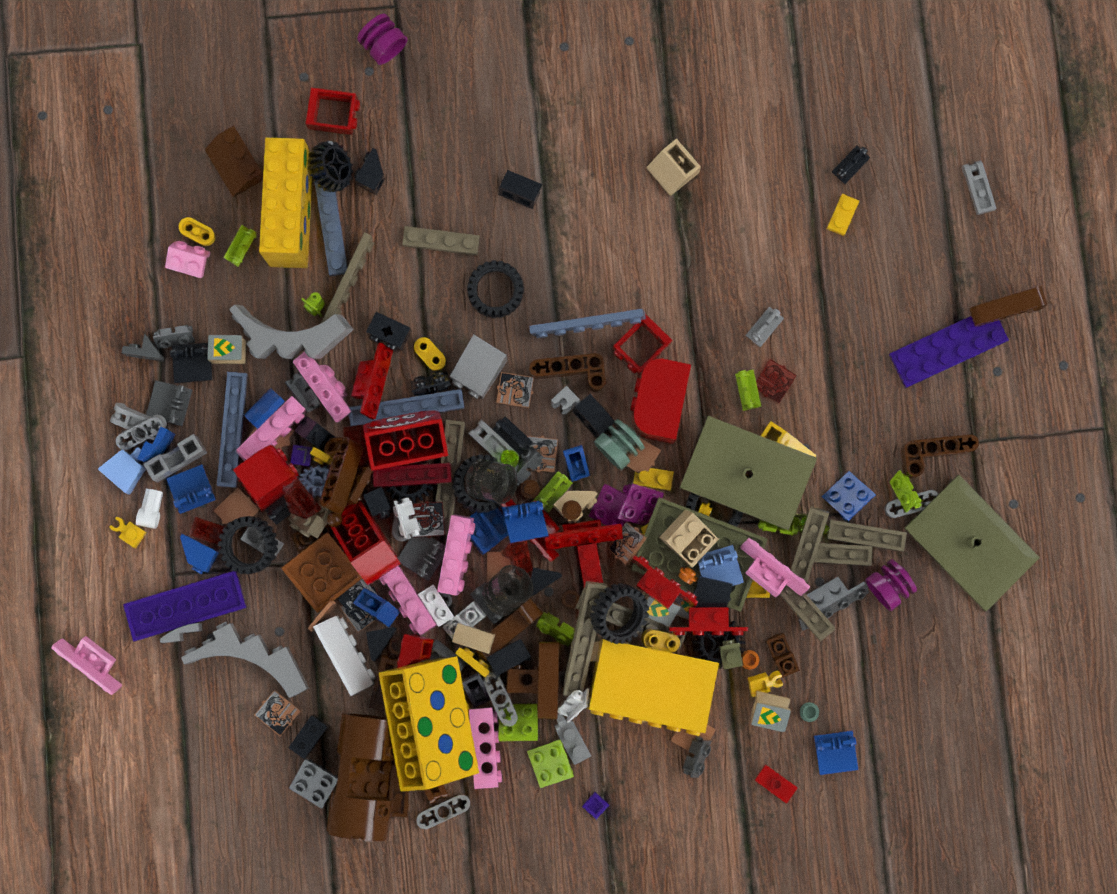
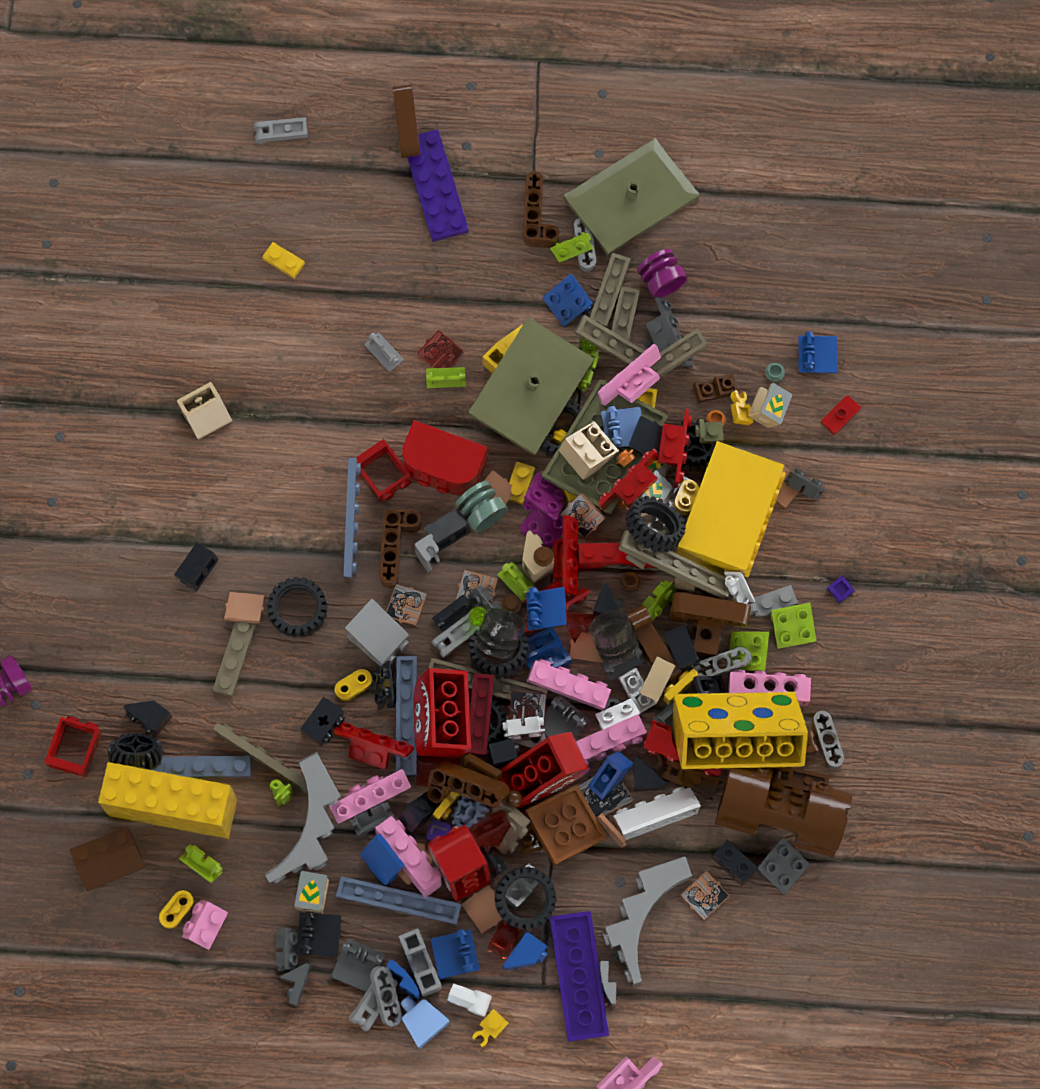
camera: 80 degrees left, 10 degrees down
(487, 240) = (244, 607): none -> nougat piece
(576, 463) = (492, 554): blue slope -> none
(851, 164) = (233, 243): black hinge -> none

